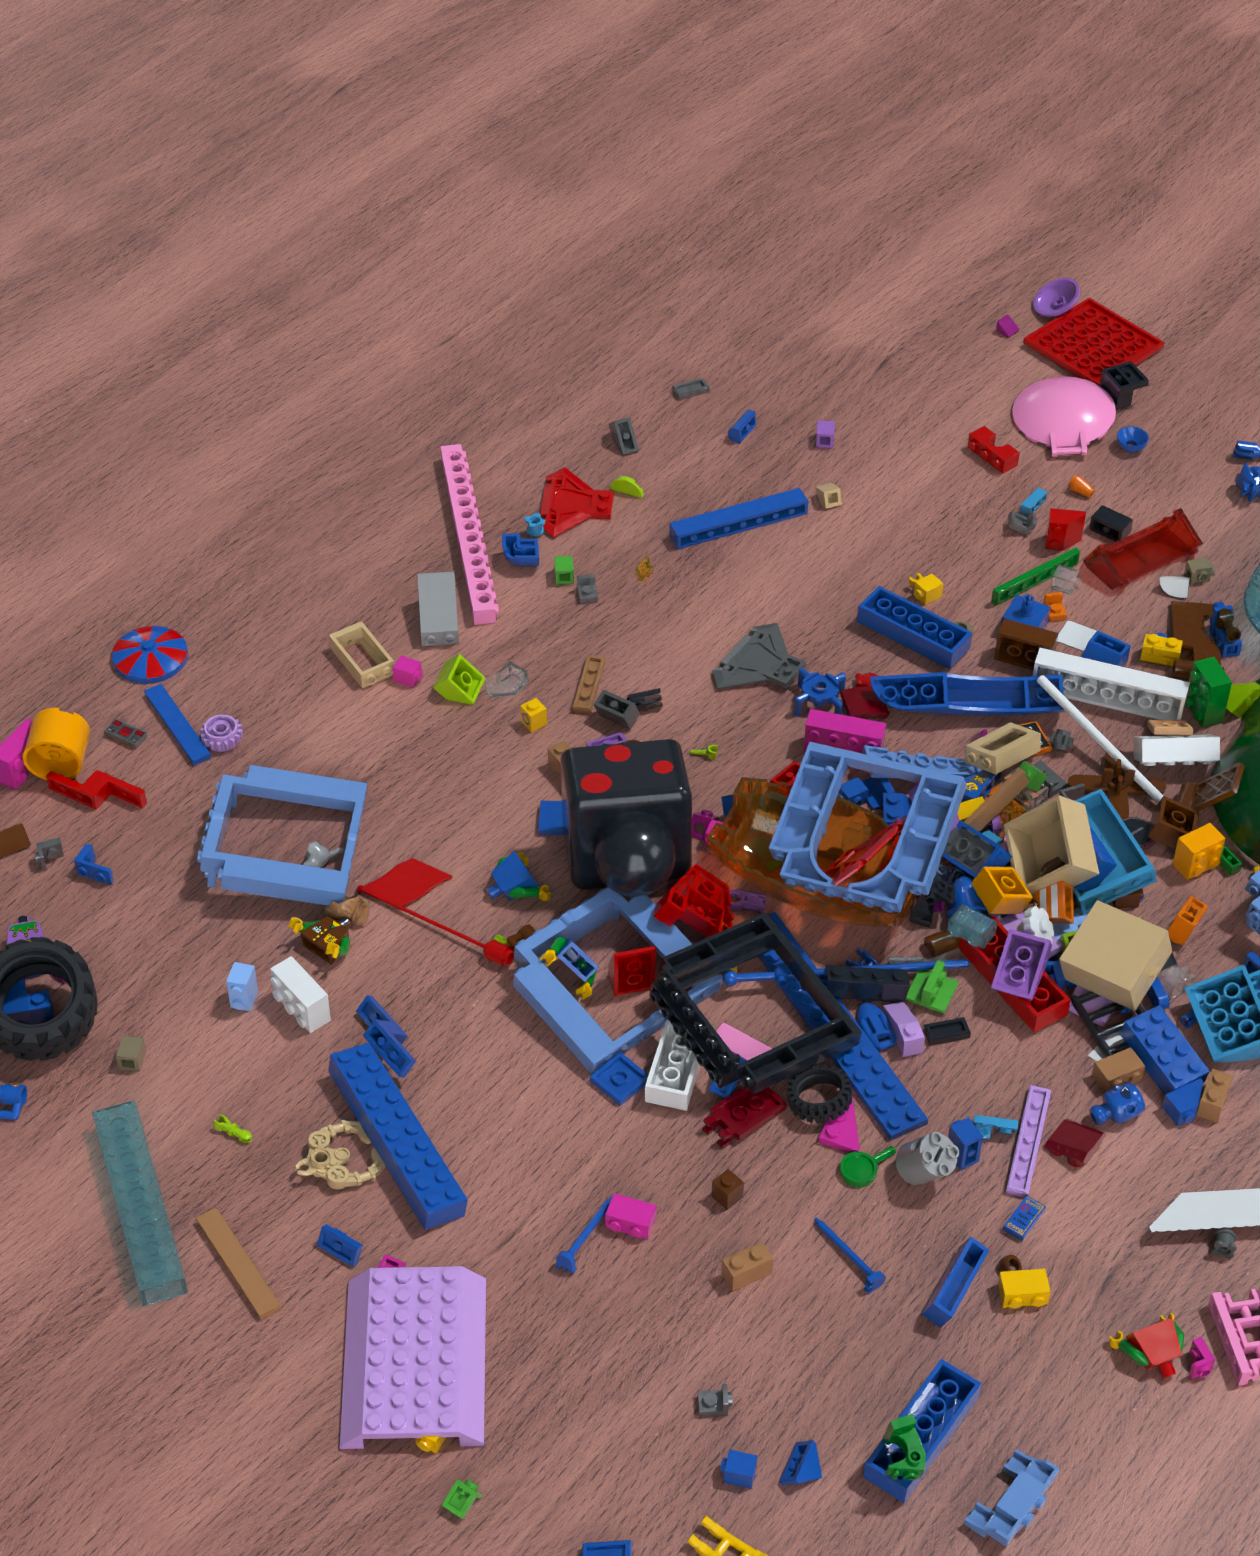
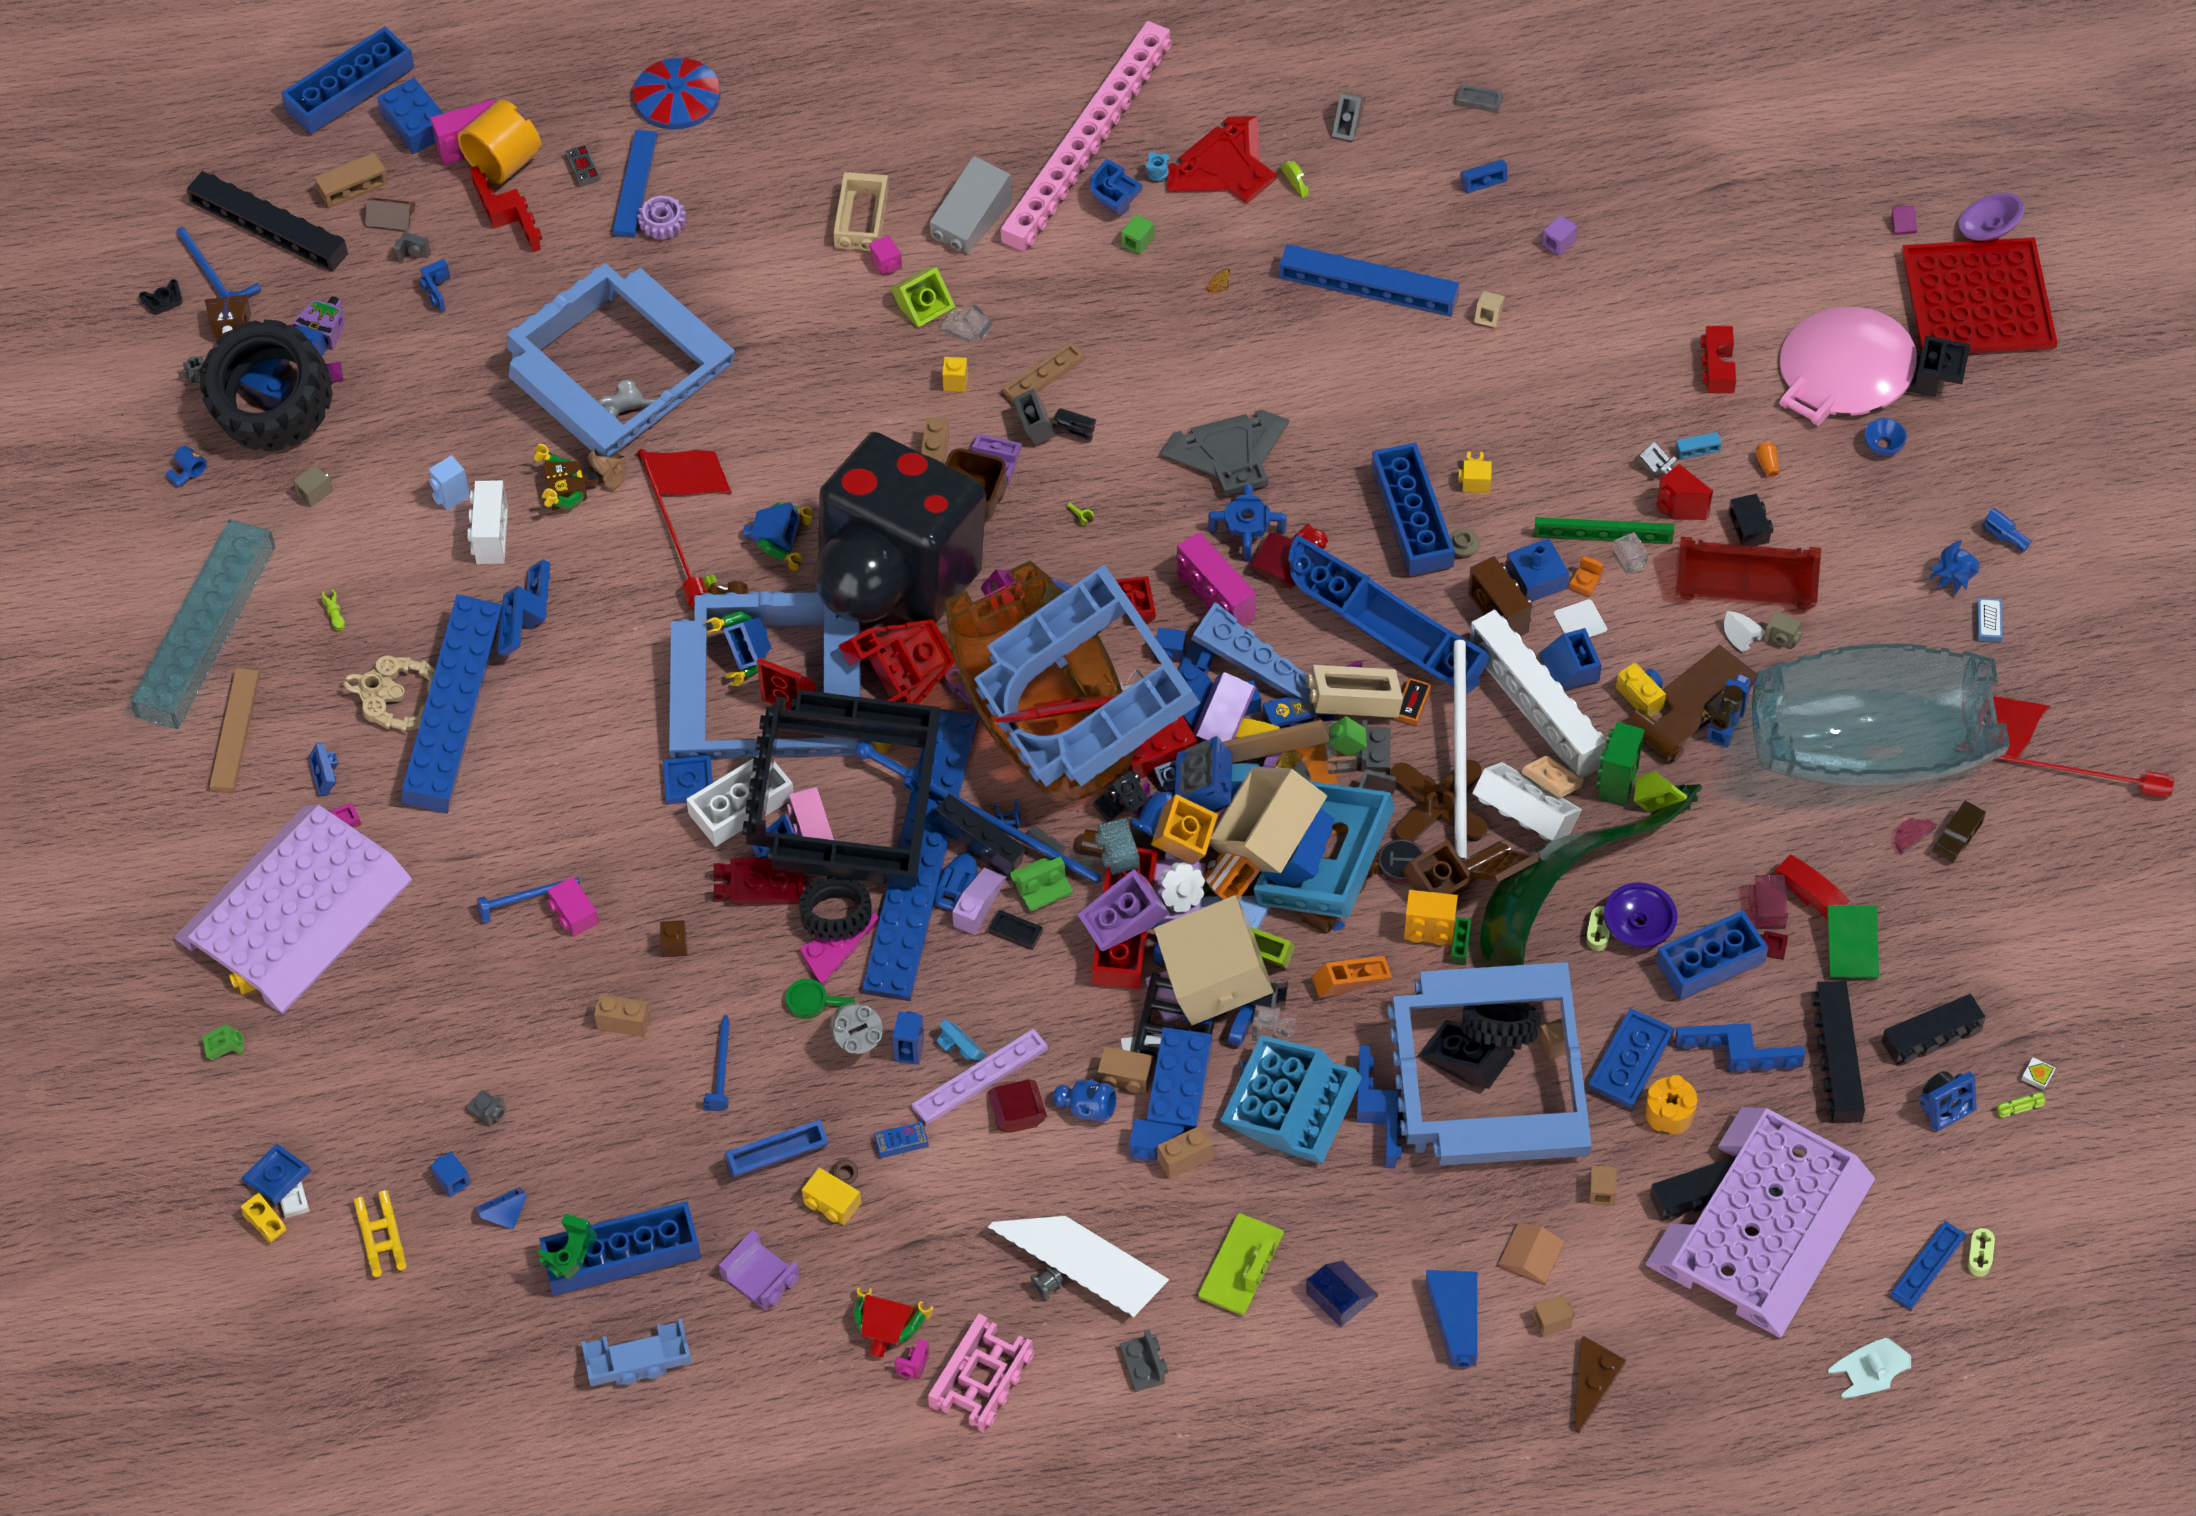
camera: 40 degrees right, 10 degrees up
(587, 589) = (1141, 269): flat silver bracket -> none
(1032, 1378) = (758, 1272): none -> medium lavender panel
(1061, 740) = (1431, 720): dark grey gear -> none

